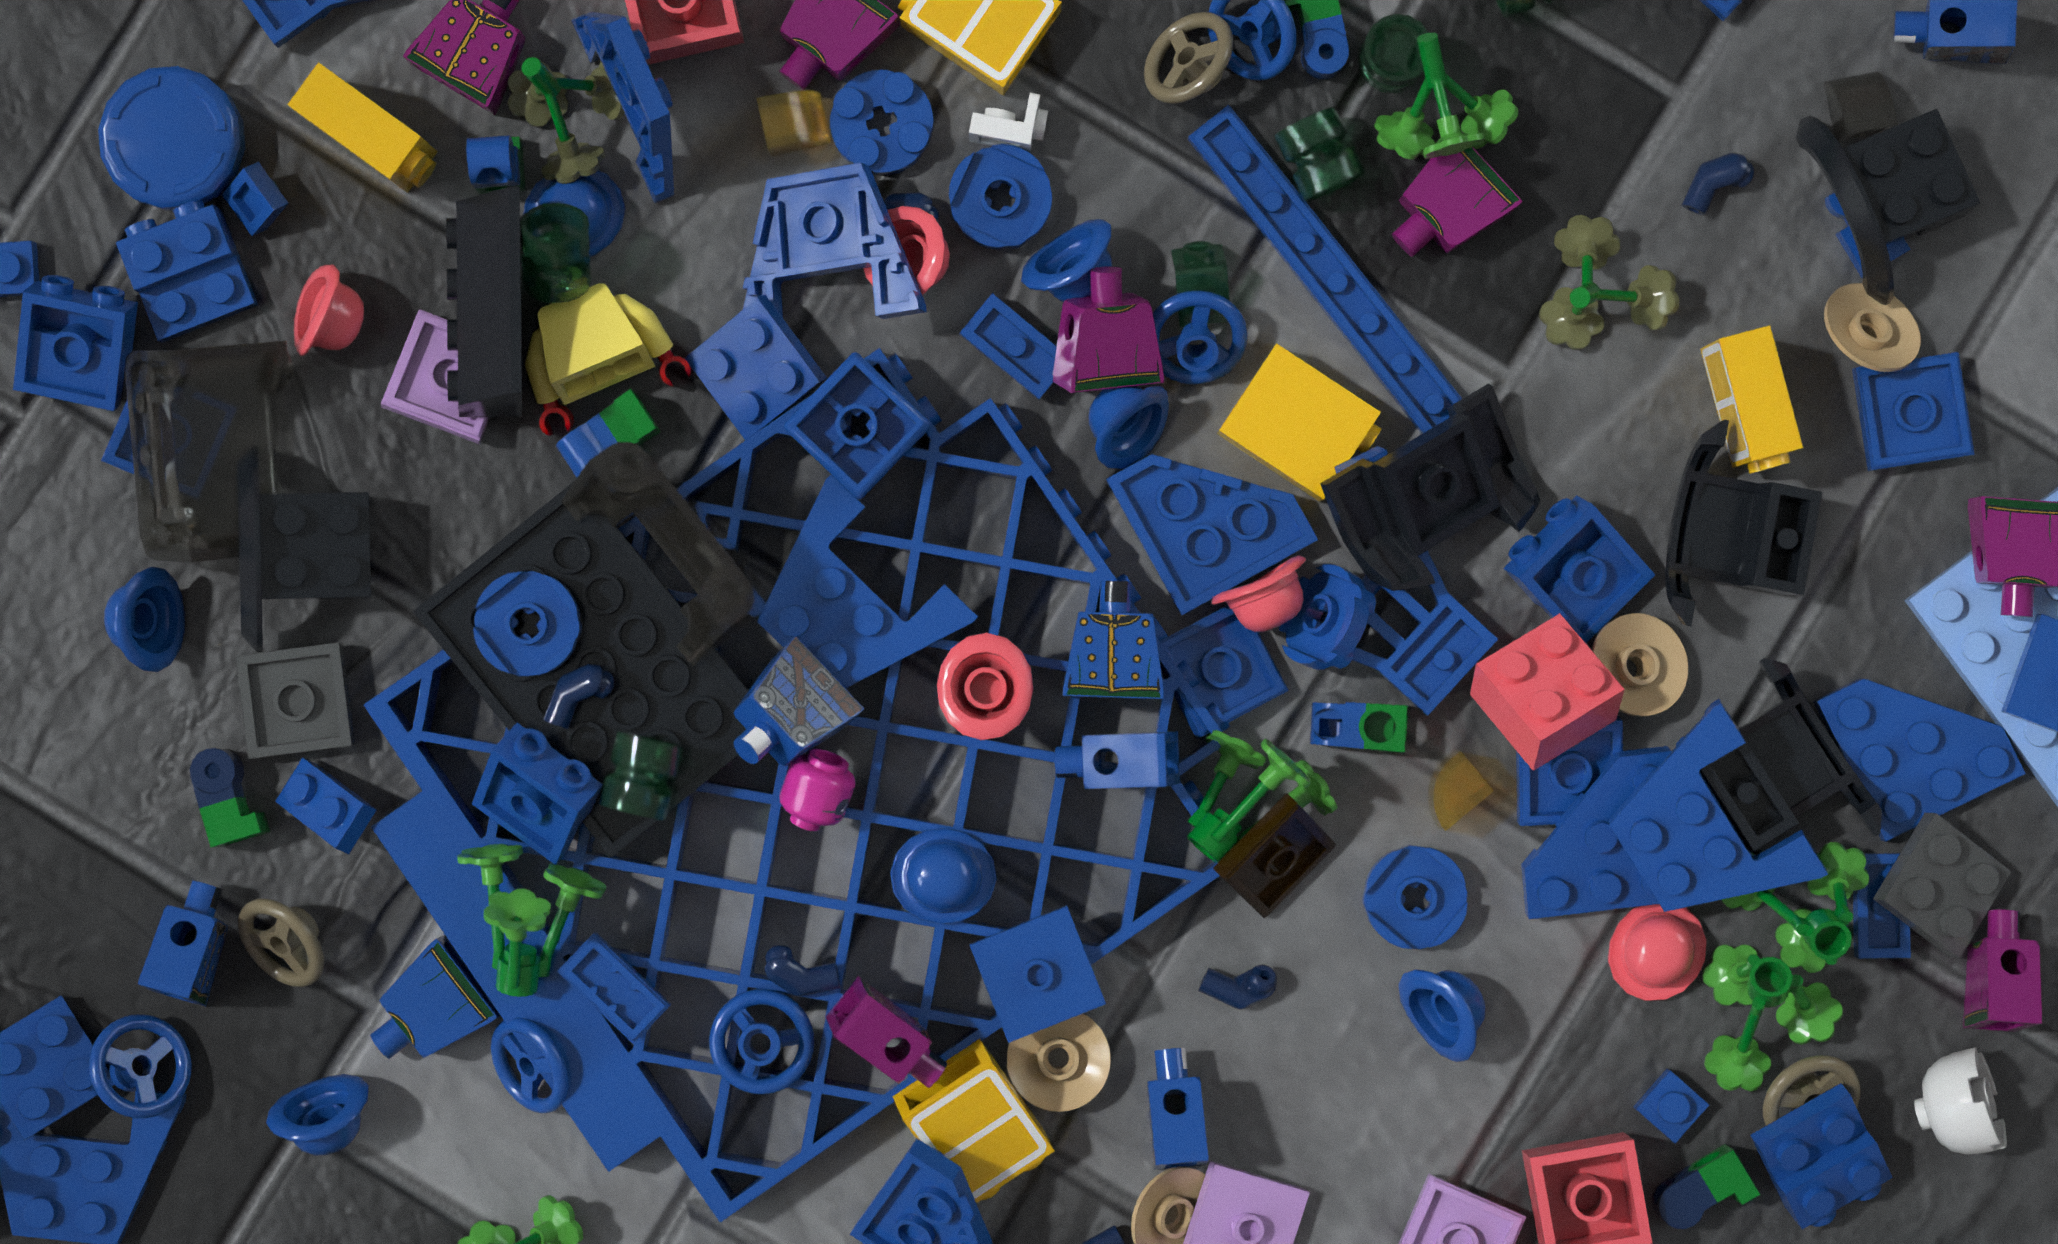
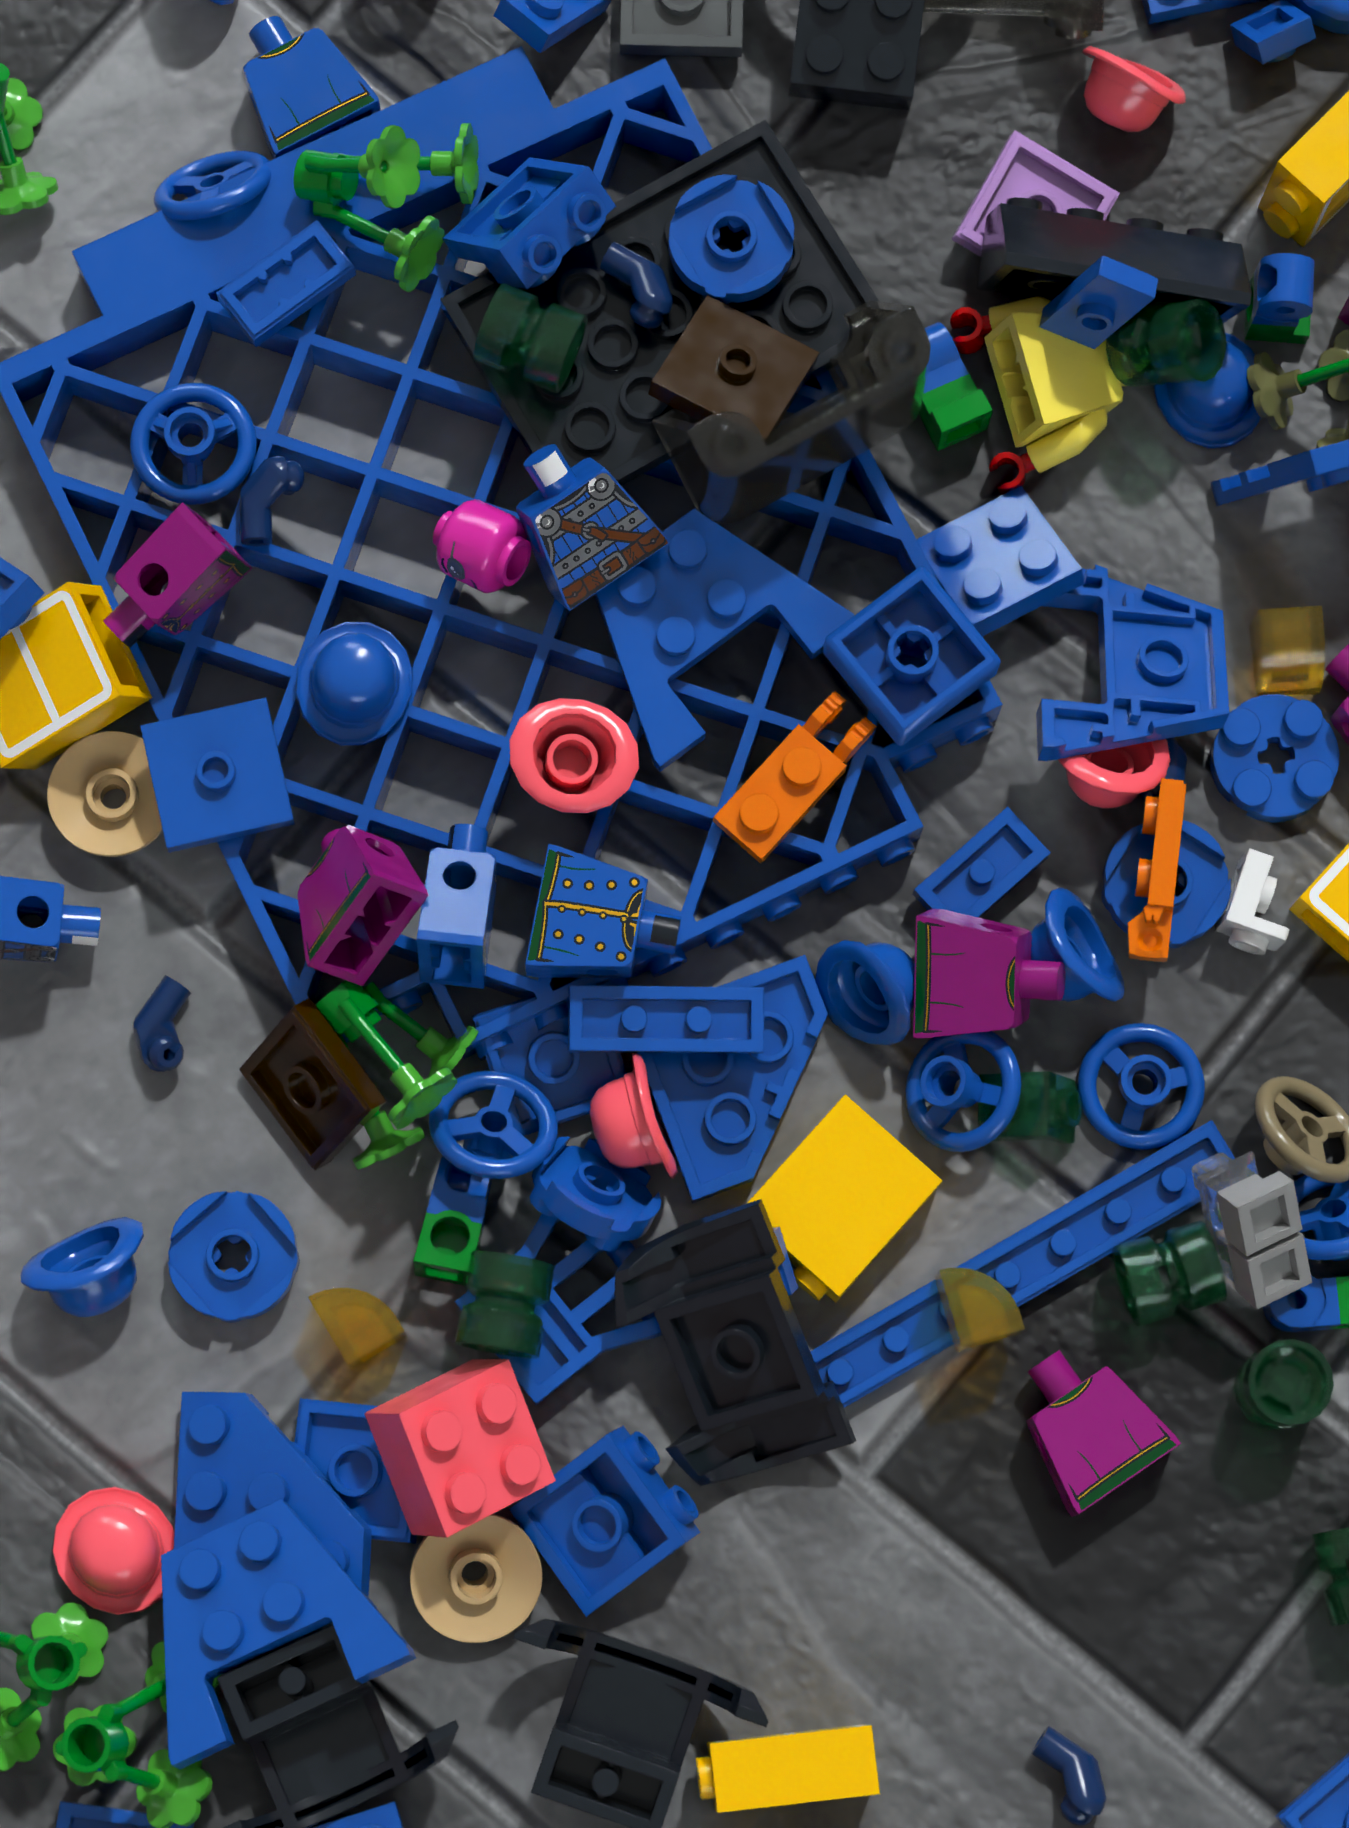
camera: 90 degrees right, 10 degrees down
(537, 311) = (1099, 302): none -> blue plate
(644, 604) = (733, 366): none -> dark brown plate
(973, 510) = (790, 782): none -> orange hinge
(1049, 203) = (1157, 876): none -> orange hinge
(1133, 842) = (356, 903): none -> magenta torso
(1181, 581) = (665, 1019): none -> blue plate
(1206, 202) = (1107, 1051): none -> blue piece
(1279, 93) = (1253, 1227): none -> light grey hips
(1308, 706) = (491, 1142): none -> blue piece
(1374, 302) = (977, 1308): none -> clear yellow brick
(1434, 674) = (504, 1305): none -> clear green wheel
(1485, 122) = (1172, 1404): bright green plant -> none
(1573, 313) = (932, 1567): olive plant -> none

